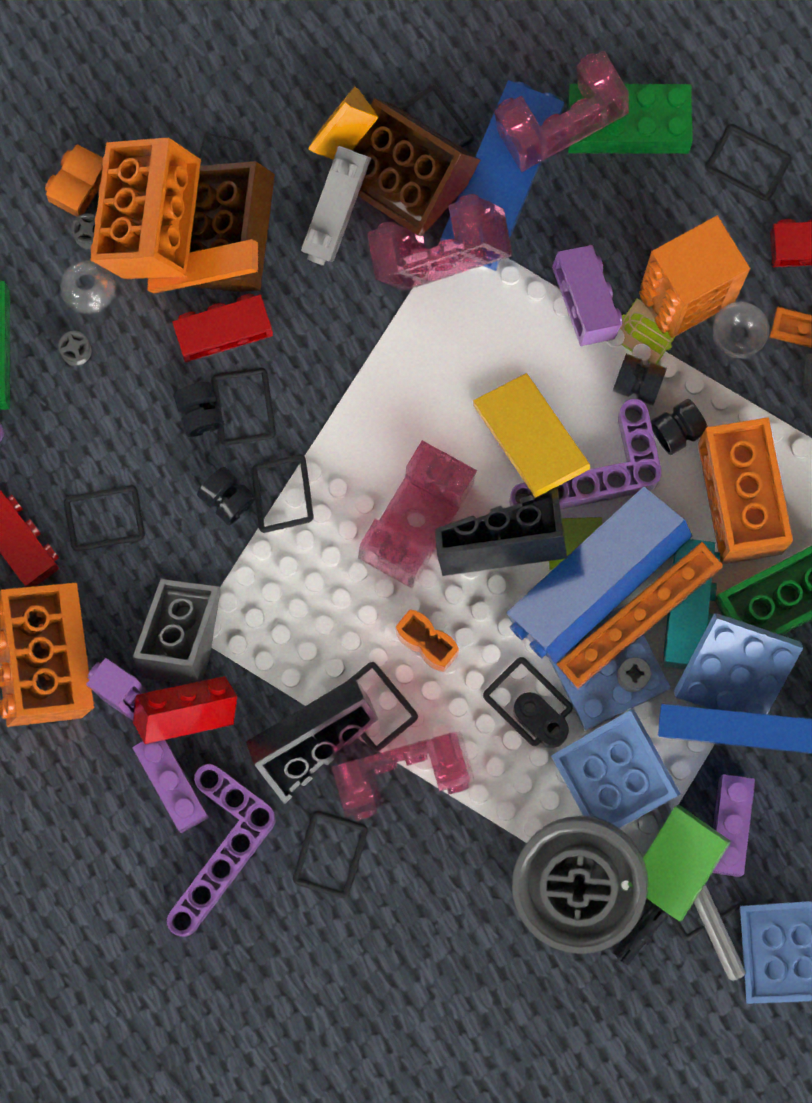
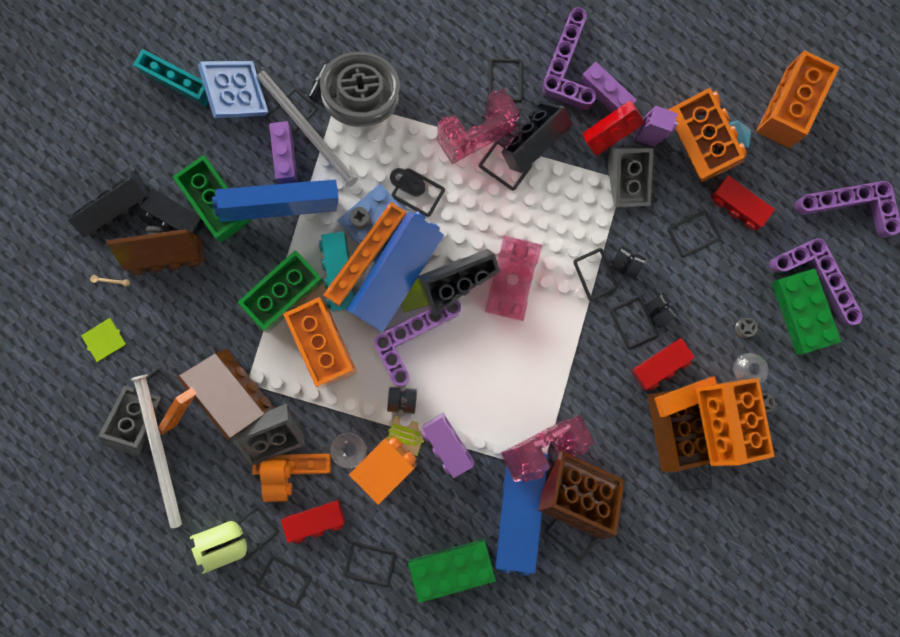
camera: 165 degrees right, 5 degrees up
(76, 181) = (782, 432): orange brick -> none
(335, 205) = (618, 460): light grey brick -> none
(345, 125) = (628, 512): light orange slope -> none
(420, 636) = (489, 207): orange brick -> none
(531, 435) = (458, 346): yellow tile -> none
(603, 103) = (469, 571): clear pink plate -> none
(616, 772) = (355, 159): medium blue plate -> none
(677, 428) = (370, 377): black wheel -> none
(681, 861) = (306, 122): bright green tile -> none
(737, 667) = (299, 237): medium blue plate -> none

